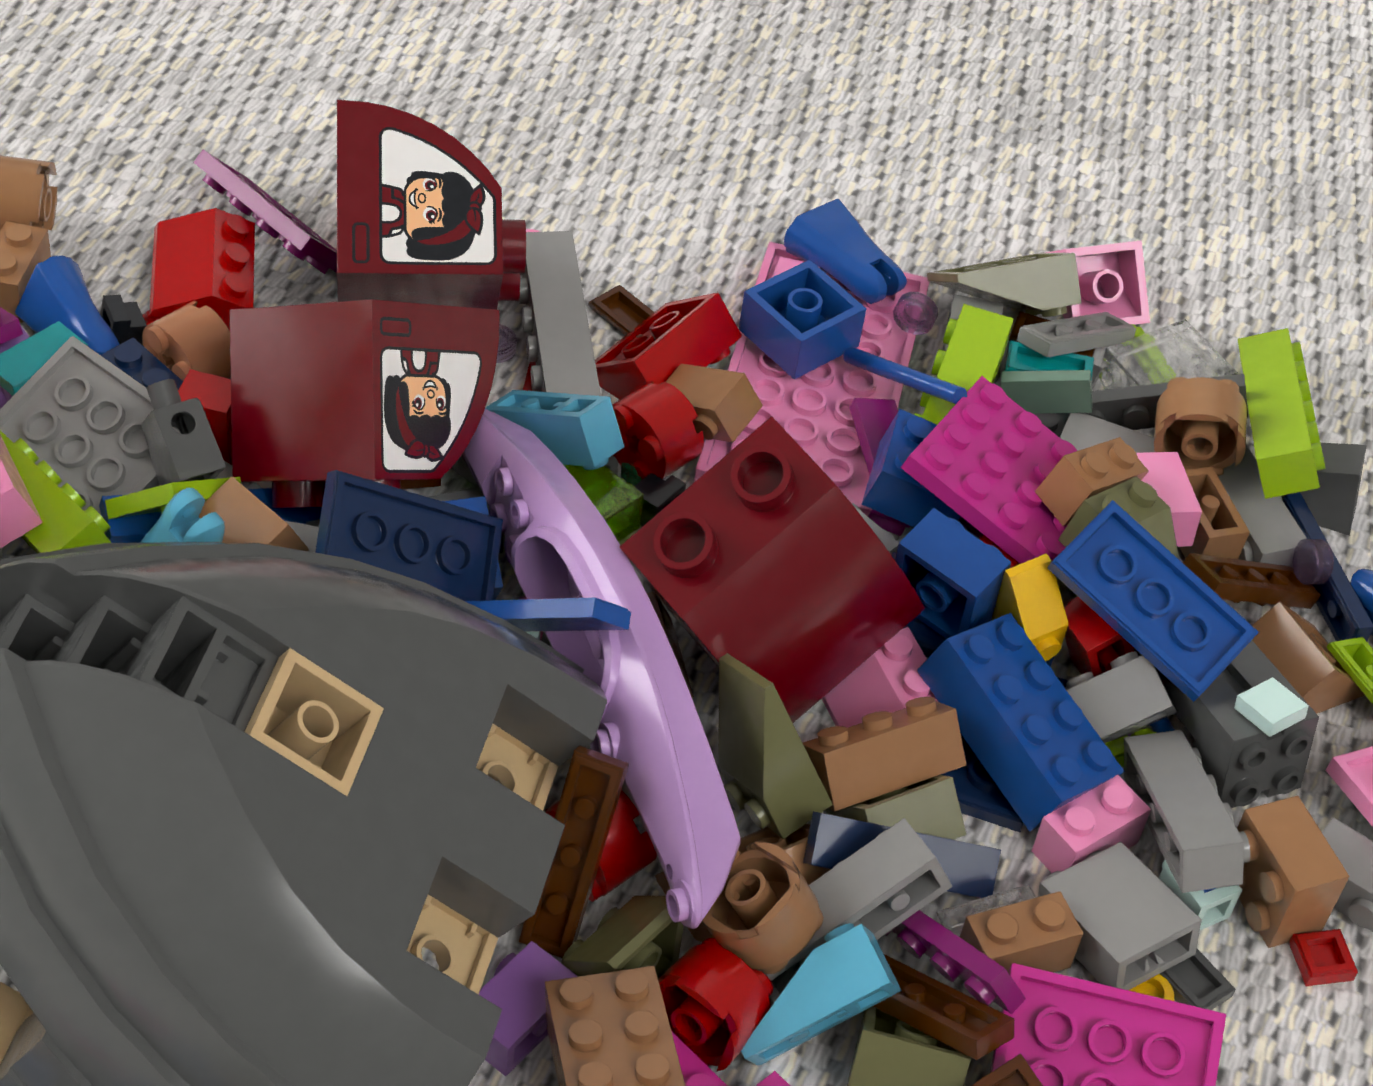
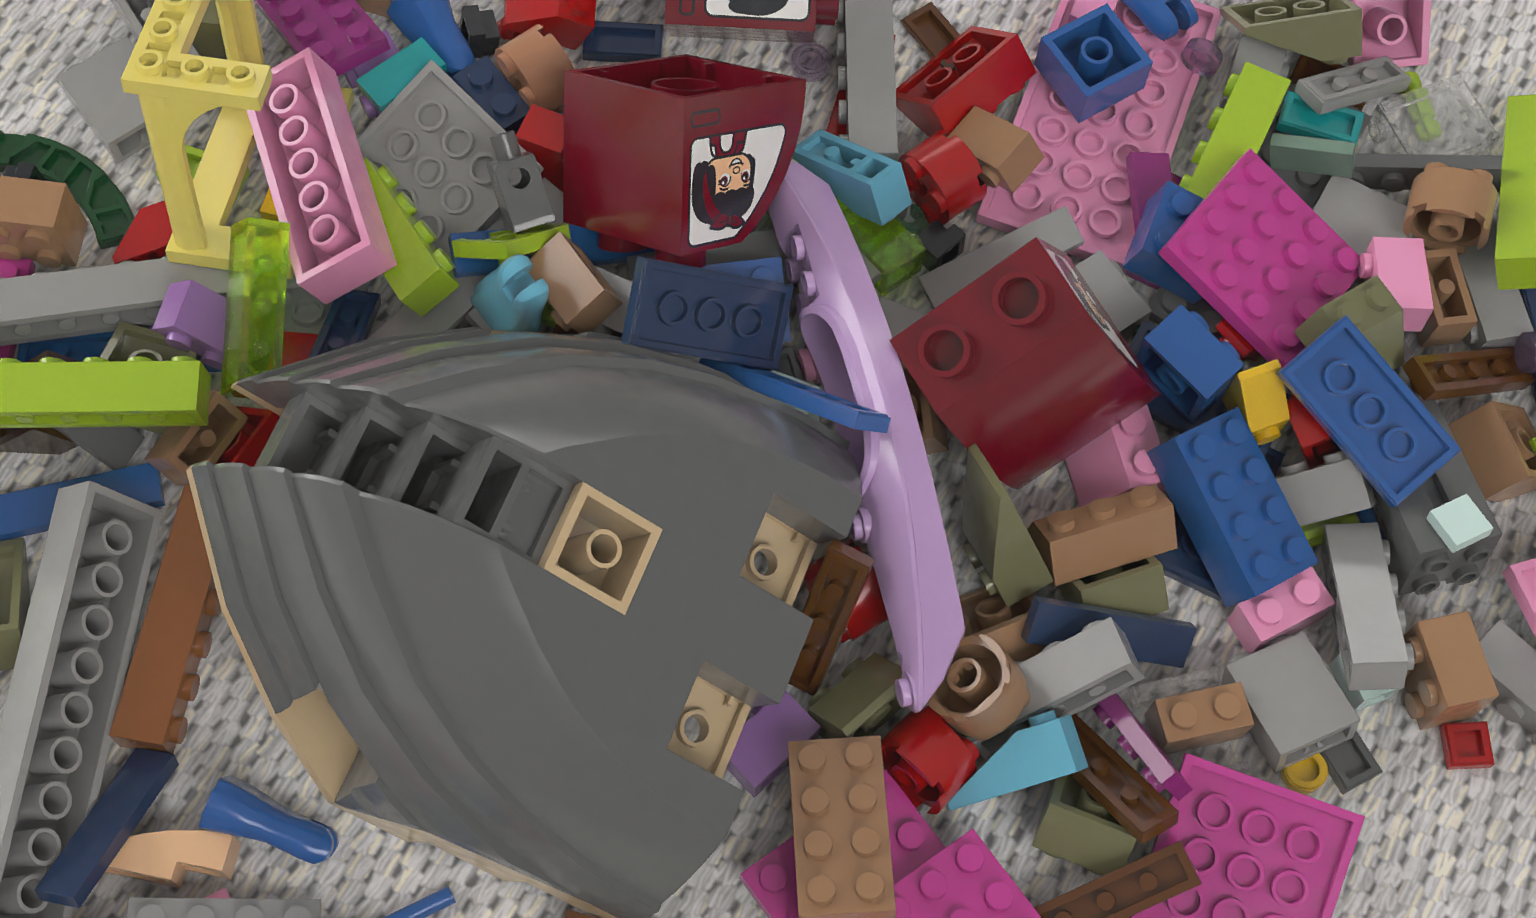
camera: 10 degrees right, 20 degrees up
(904, 375) = (1179, 135): blue bar -> none
(1087, 474) = (1334, 273): medium nougat brick -> none

